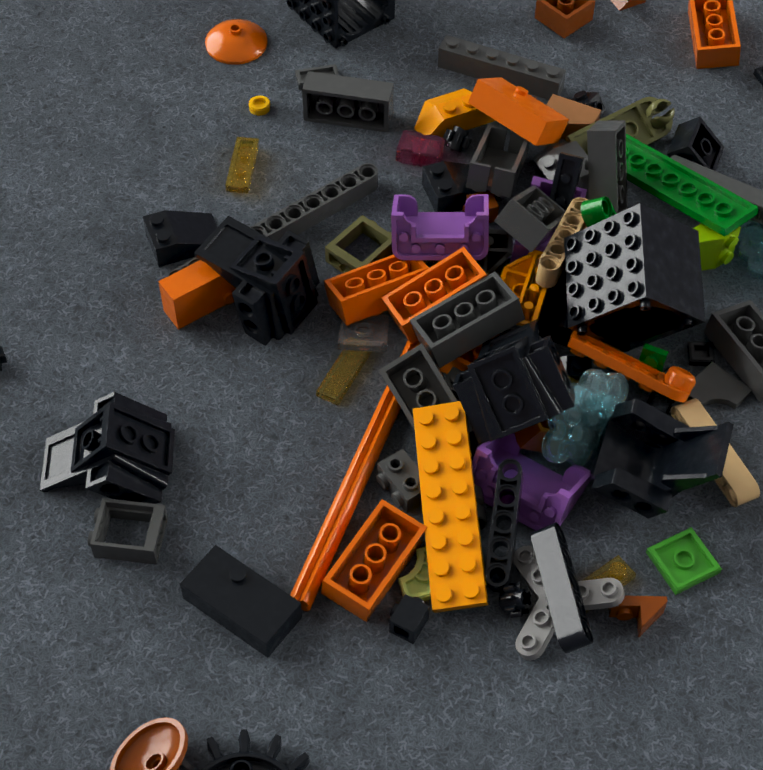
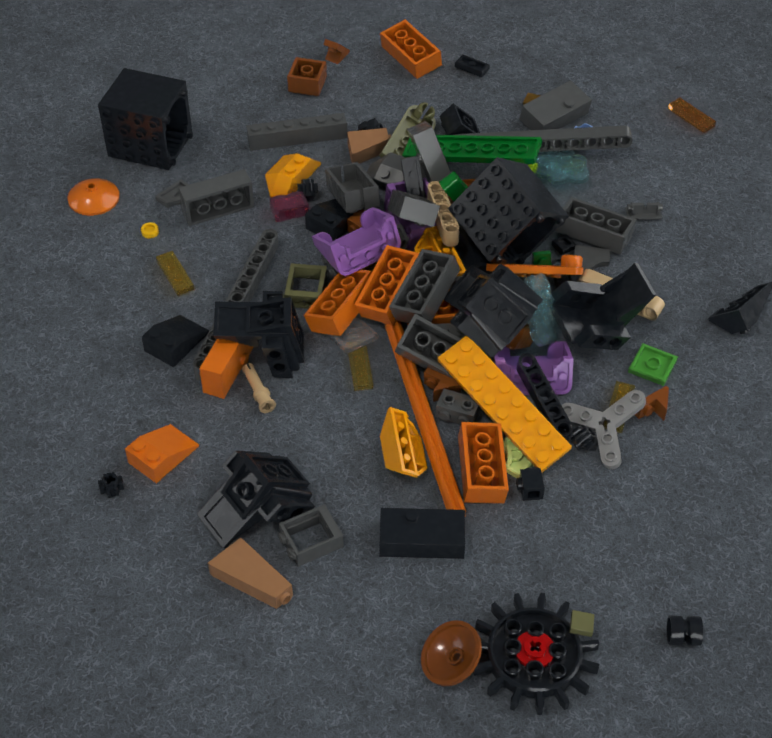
camera: 35 degrees left, 5 degrees down
(37, 533) = (250, 573): none -> medium nougat slope
(66, 350) = (159, 451): none -> orange slope
(215, 343) = (261, 394): none -> tan pin
(306, 490) = (402, 444): none -> light orange wedge
(406, 438) = (439, 381): none -> dark orange slope
(518, 111) = (340, 150): orange brick -> none
(561, 588) = (609, 411): beam -> none

